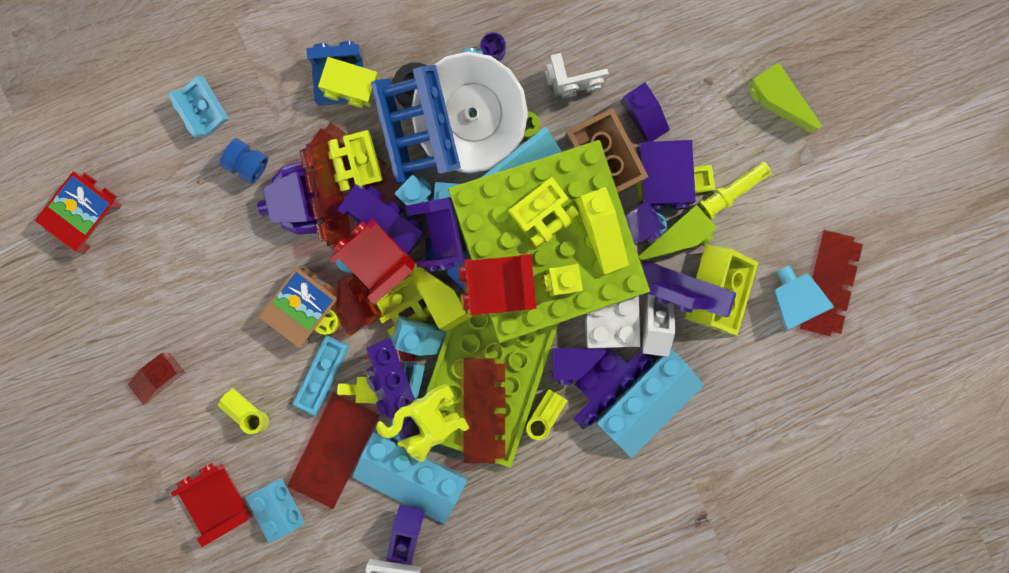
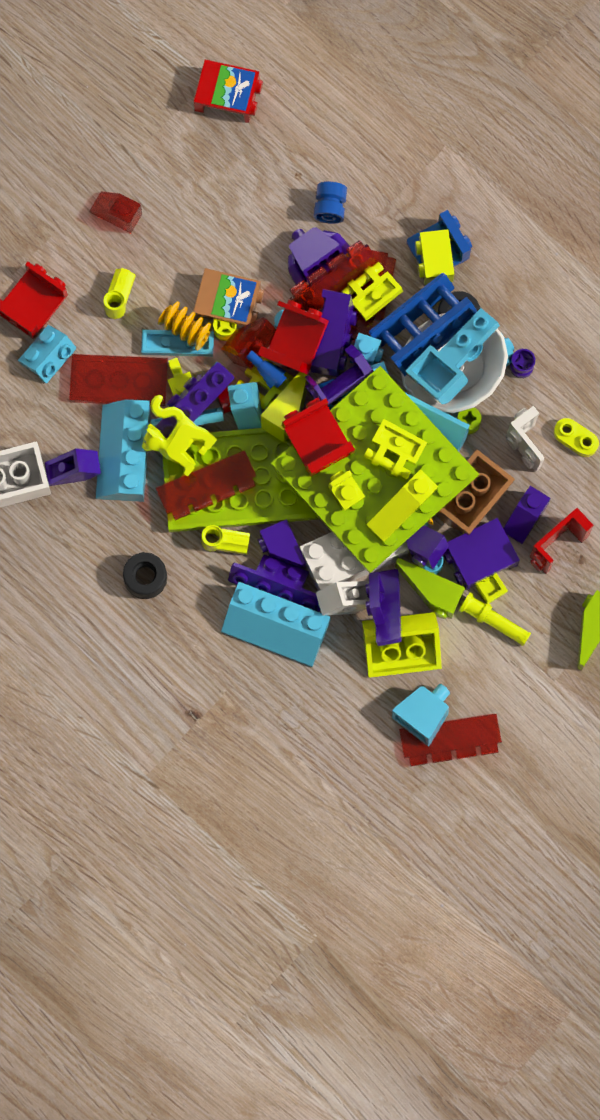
camera: 70 degrees right, 10 degrees down
(198, 107) = (358, 147): medium azure bracket -> none
(309, 361) = (185, 325): none -> yellow piece
(398, 298) = (271, 373): none -> blue cone
(476, 131) = (440, 370): none -> medium azure plate
(551, 526) = (145, 560): none -> black tyre
(588, 30) = (574, 439): none -> neon yellow plate
(675, 75) = (575, 522): none -> red panel

